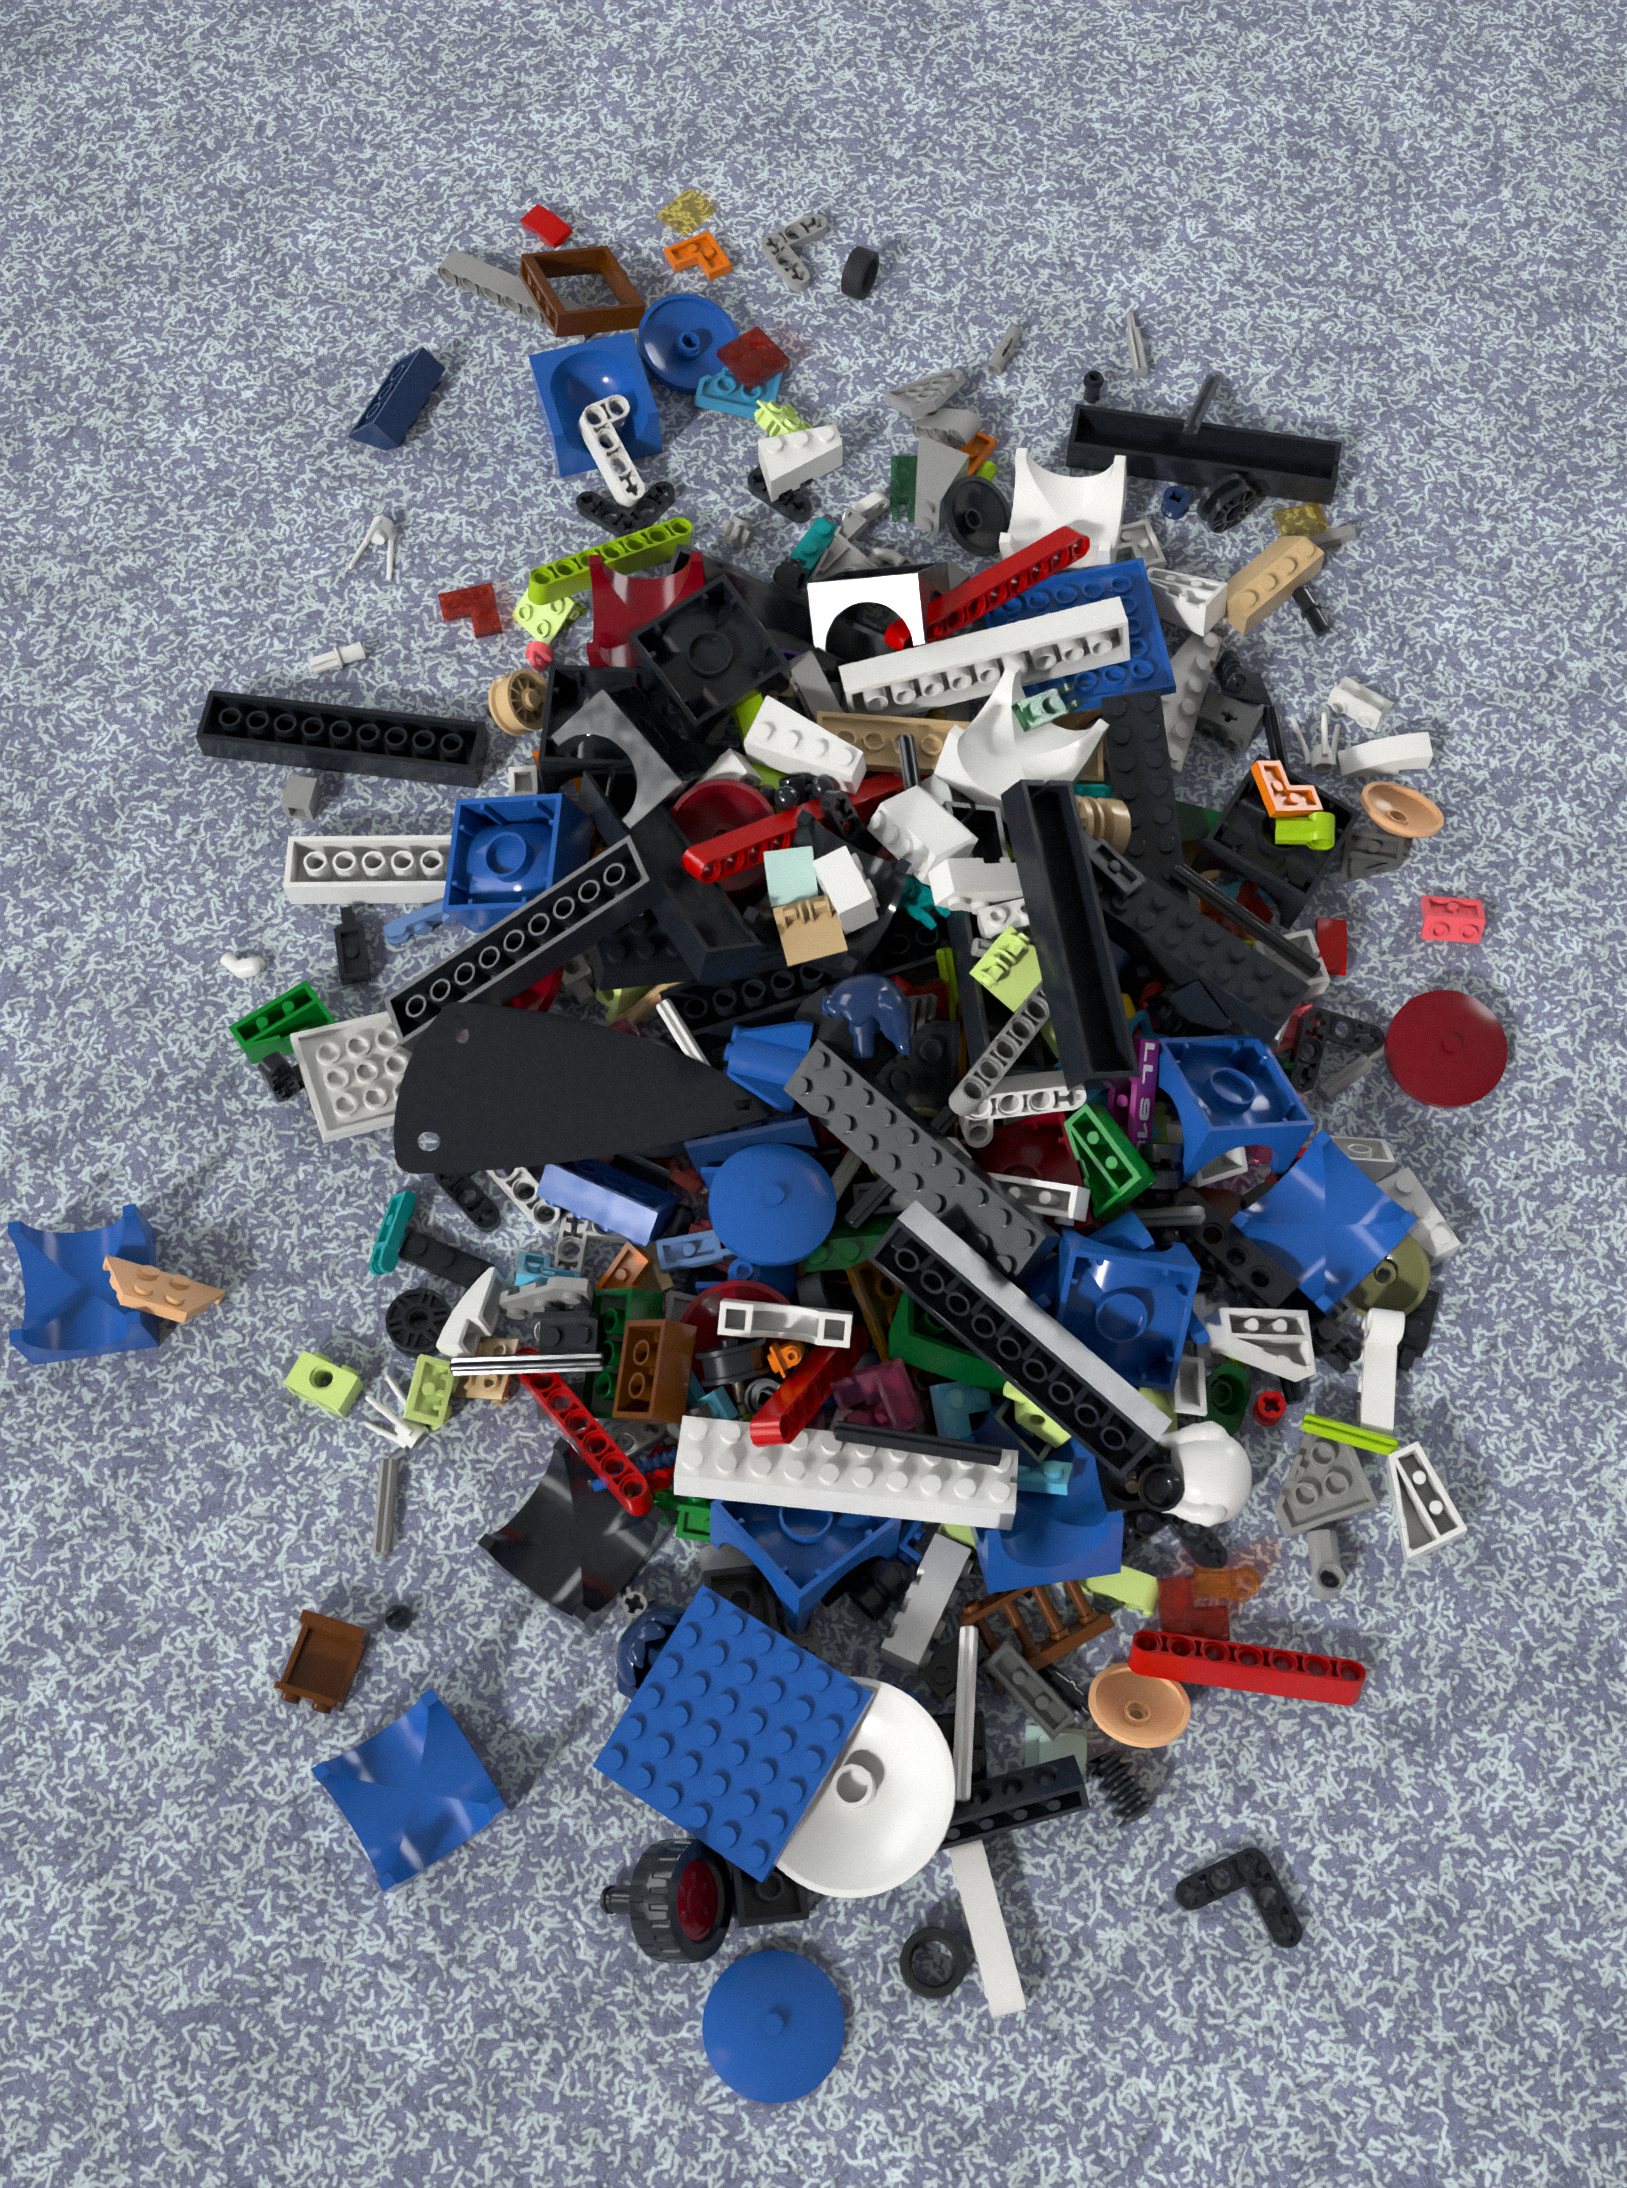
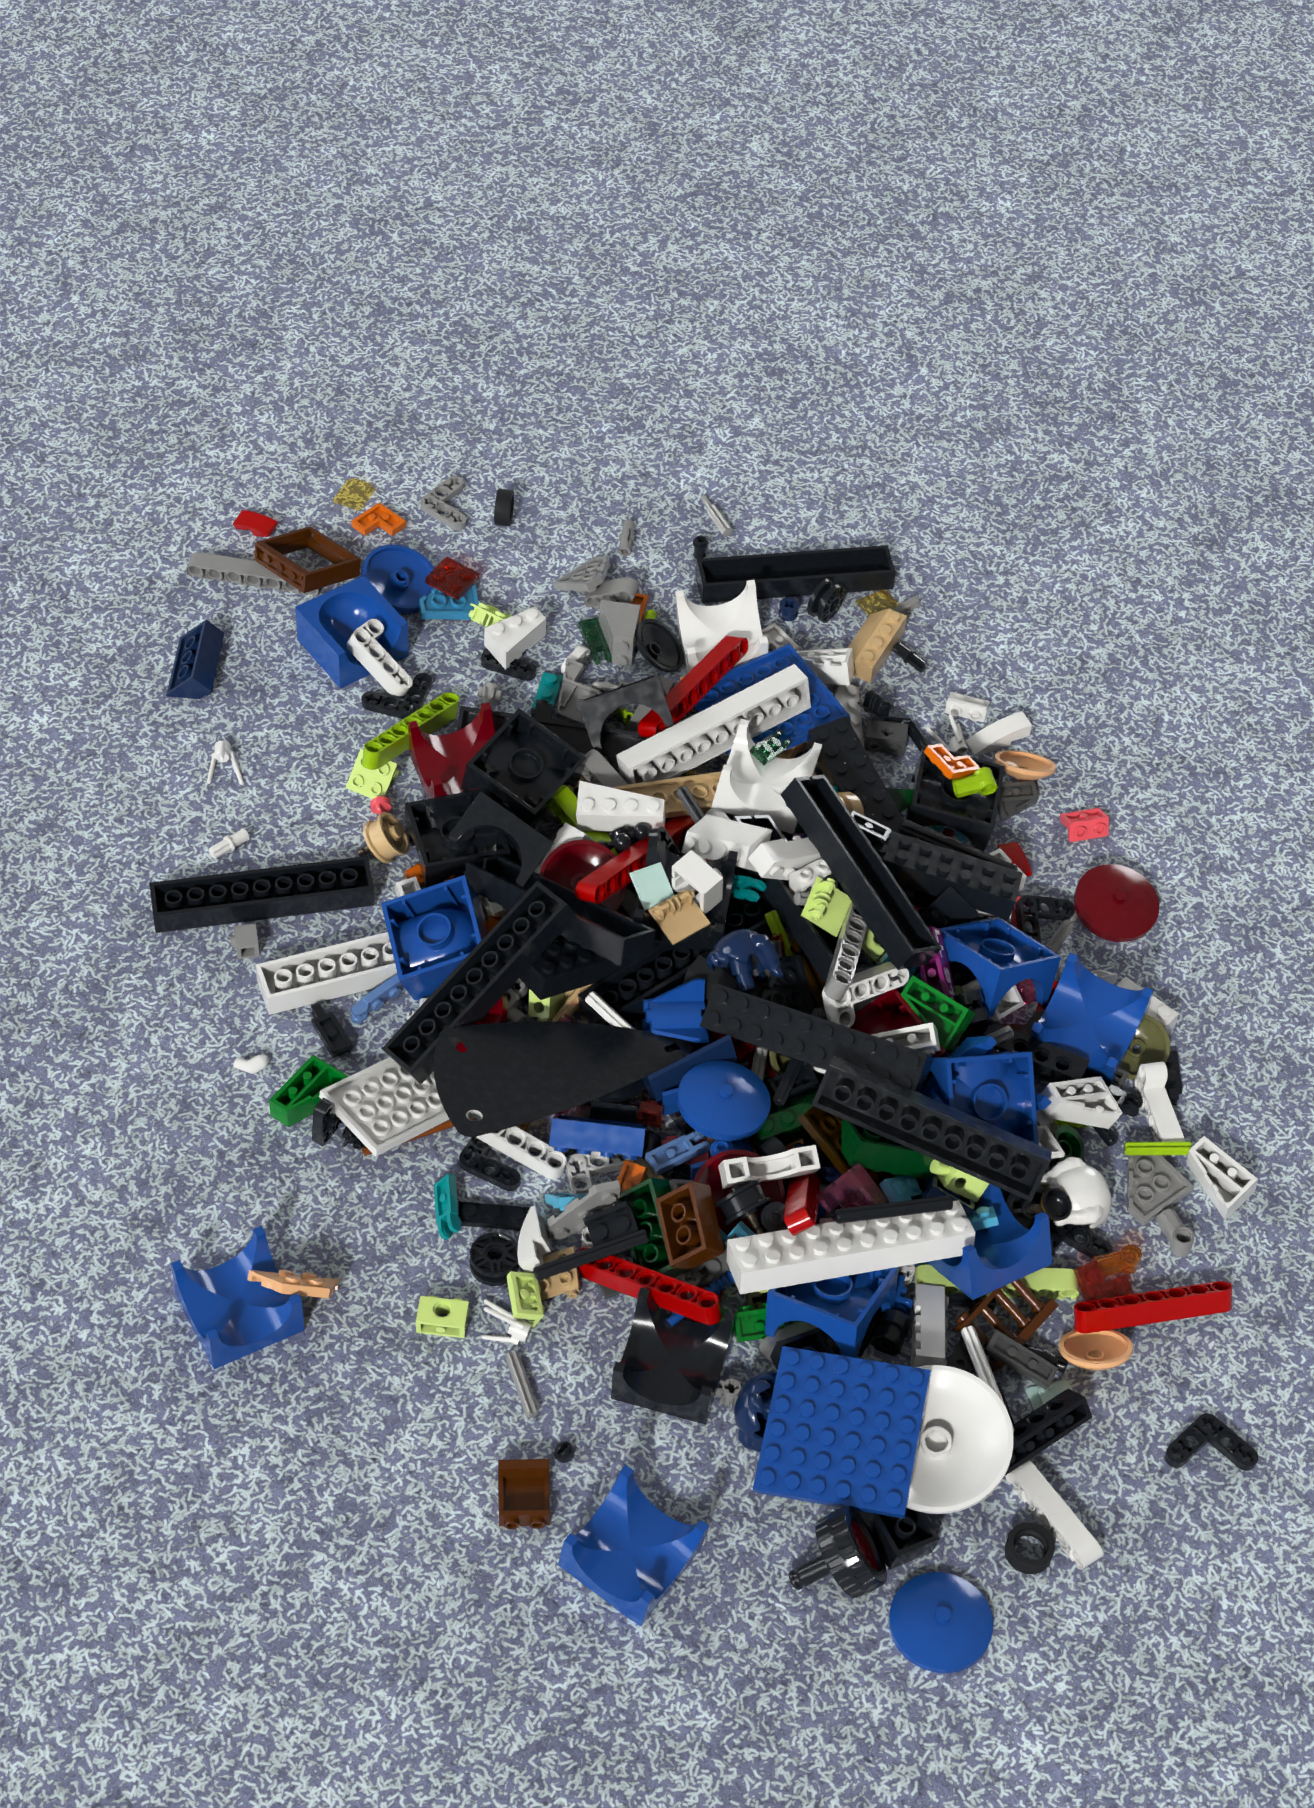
camera: 25 degrees left, 15 degrees down
(476, 603) = (317, 783): clear red plate -> none
(785, 1356) = (777, 1188): orange hinge -> none
(1121, 1786) = (1105, 1403): black piece -> none
(1201, 405) = (782, 542): black axle -> none
(1265, 1399) = (1099, 1147): red bush -> none

